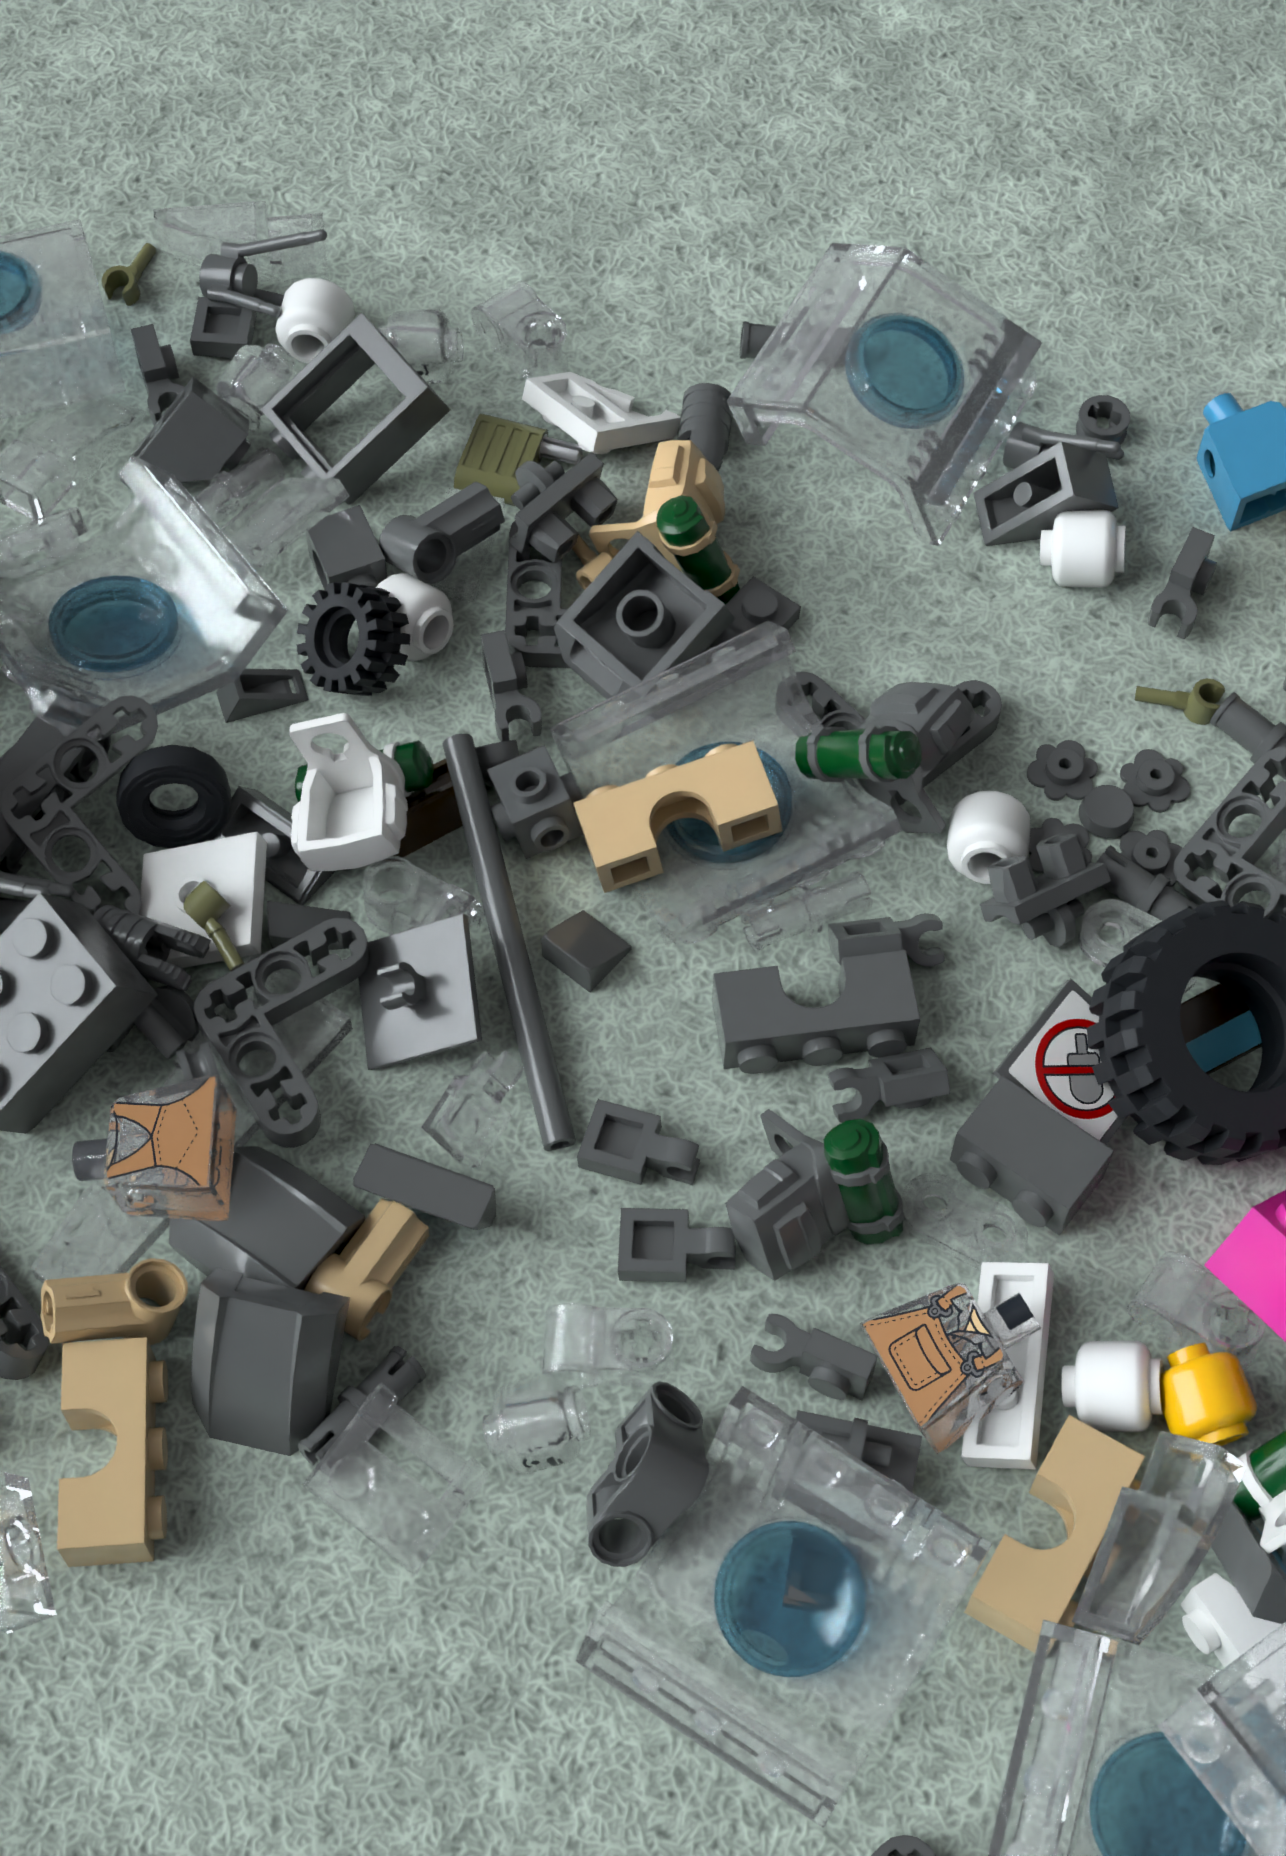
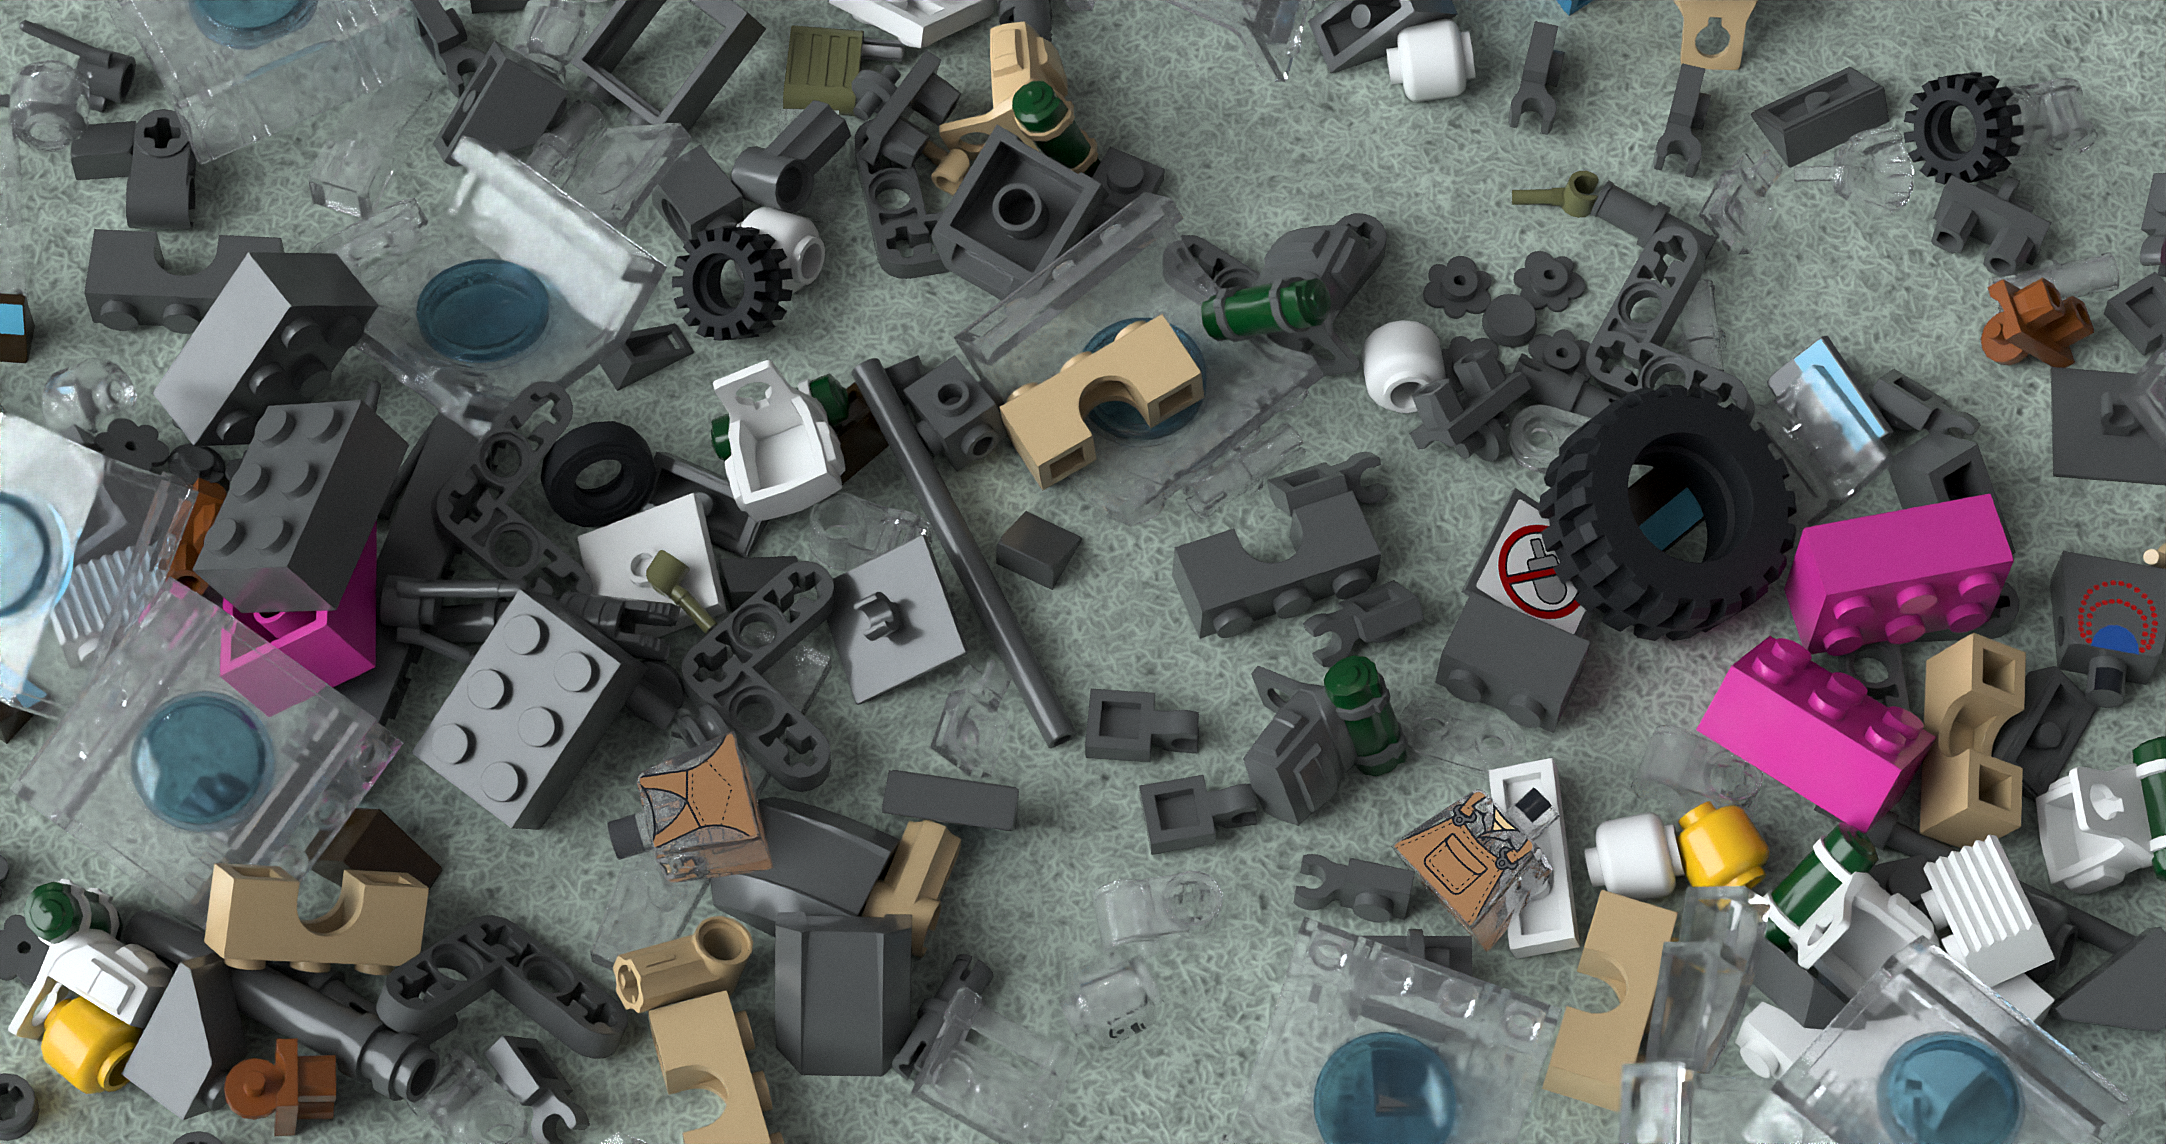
camera: 15 degrees left, 0 degrees up
(504, 676) = (889, 296): dark grey plate -> none
(651, 1479) = (1233, 1022): dark grey piece -> none

